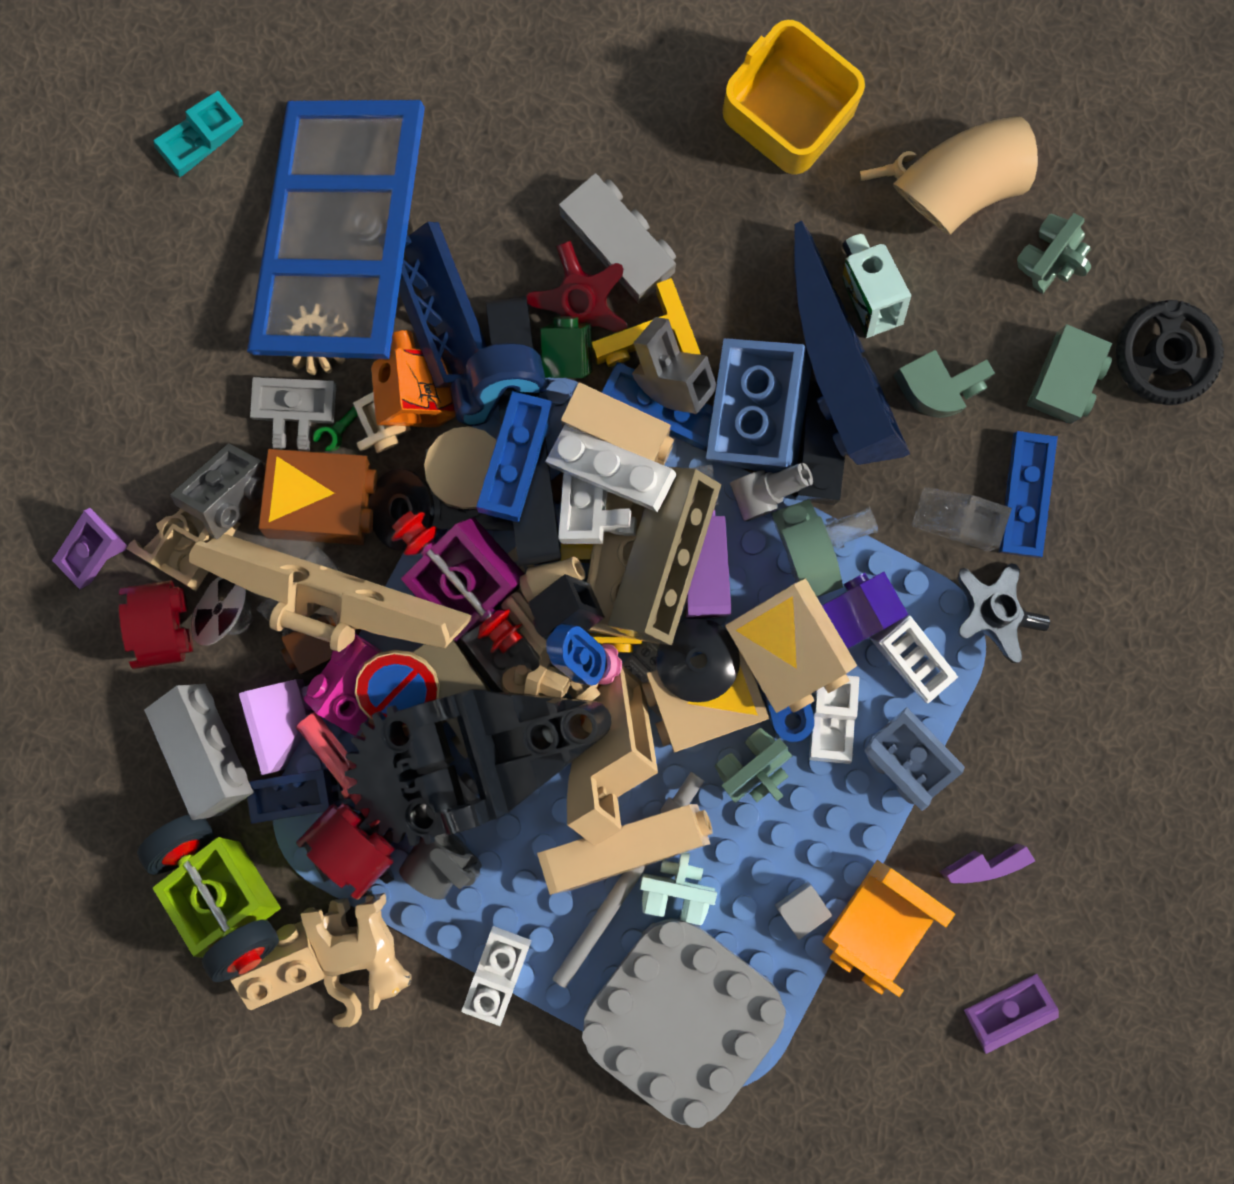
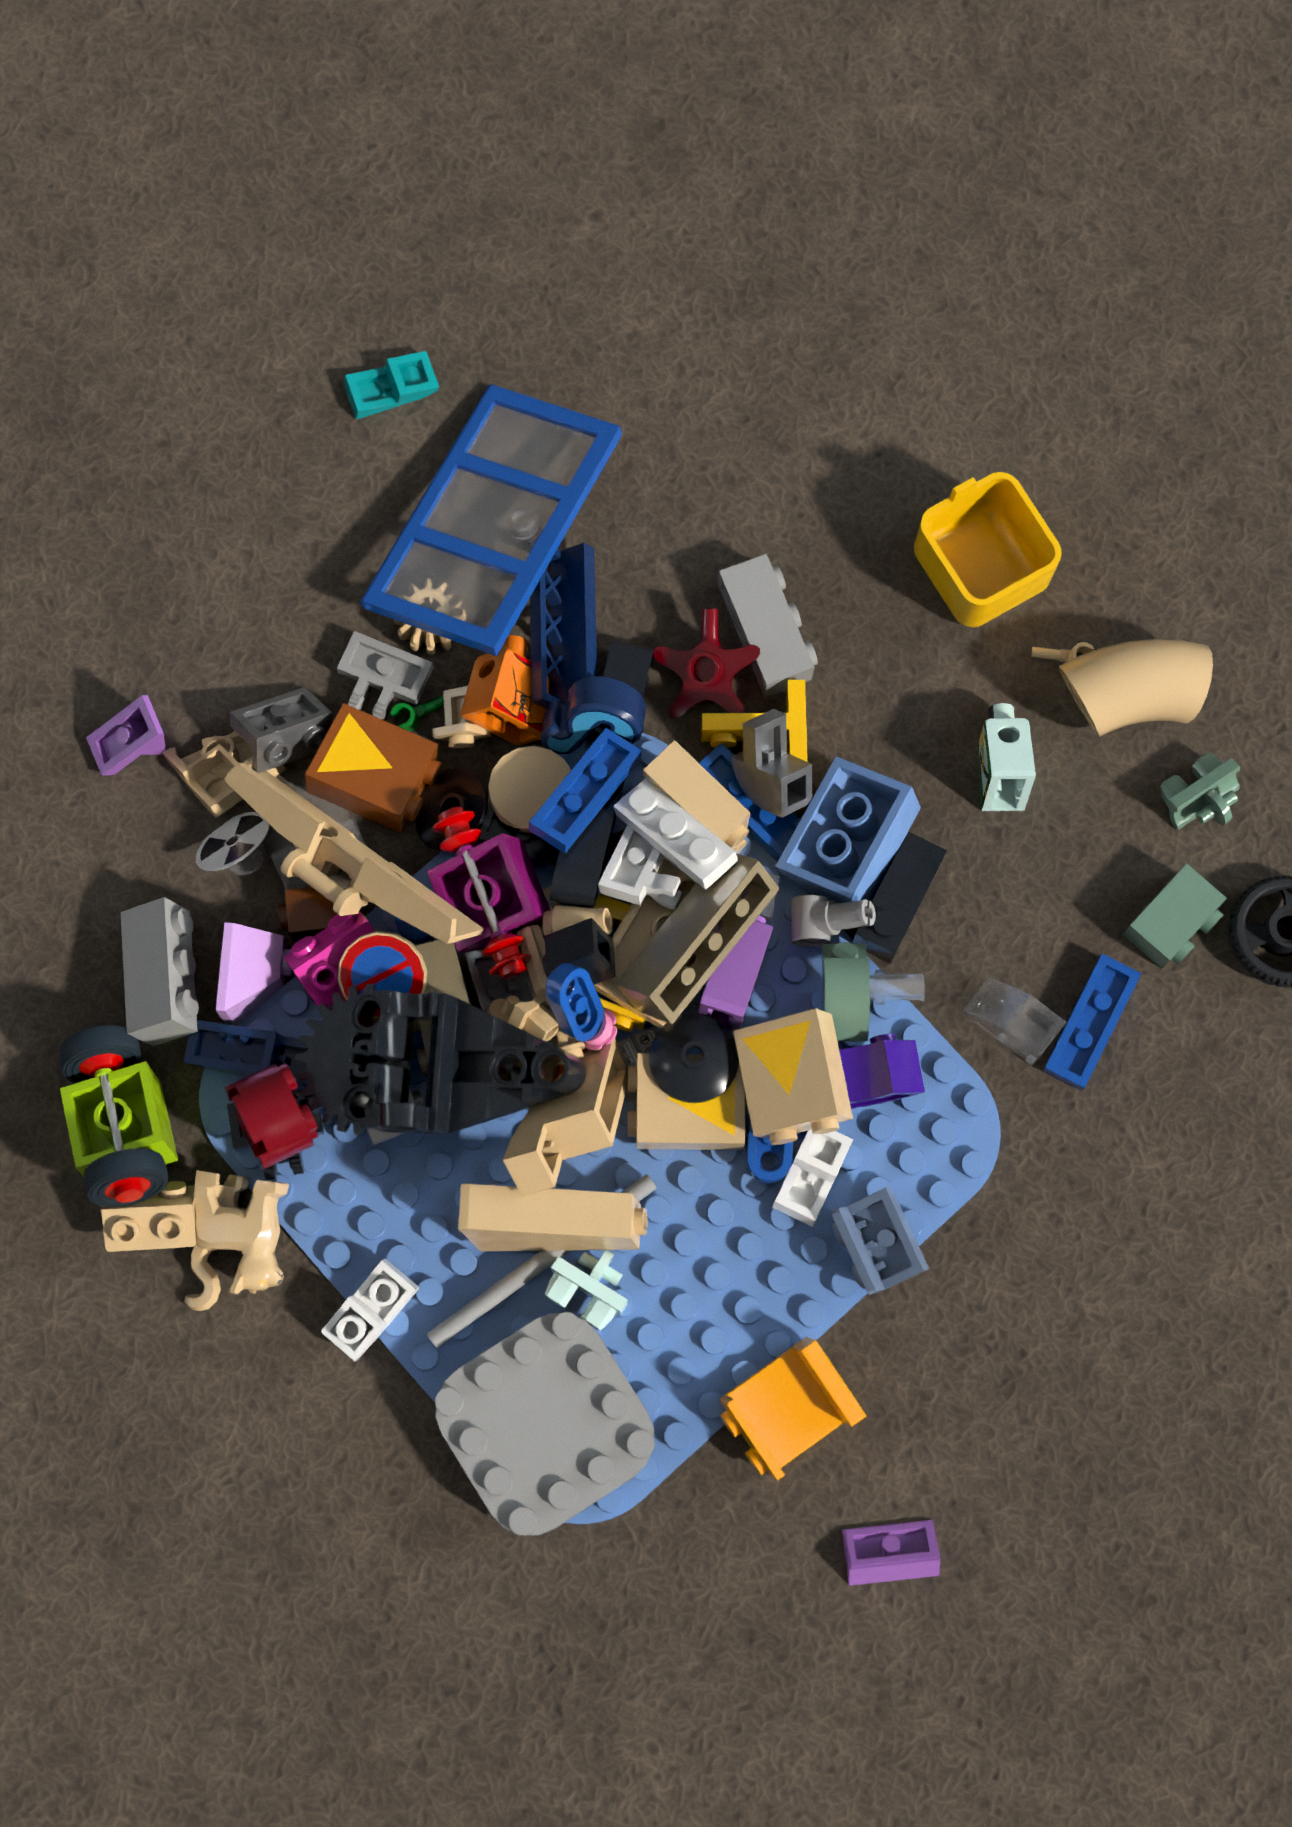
camera: 15 degrees right, 10 degrees down
(153, 624) = (163, 832): dark red brick -> none
(331, 754) = (291, 1020): coral pin -> none
(439, 866) = (355, 1169): dark grey piece -> none
(566, 348) = (675, 711): dark green brick -> none
(769, 757) = (715, 1198): sand green hips -> none
(803, 910) = (711, 1358): light grey slope -> none
(846, 380) = (944, 841): dark blue wedge -> none
(903, 665) = (902, 1146): white slope -> none
(933, 391) = (1032, 888): sand green brick -> none
(976, 869) = (907, 1382): medium lavender slope -> none
(998, 611) = (1019, 1126): animal -> none

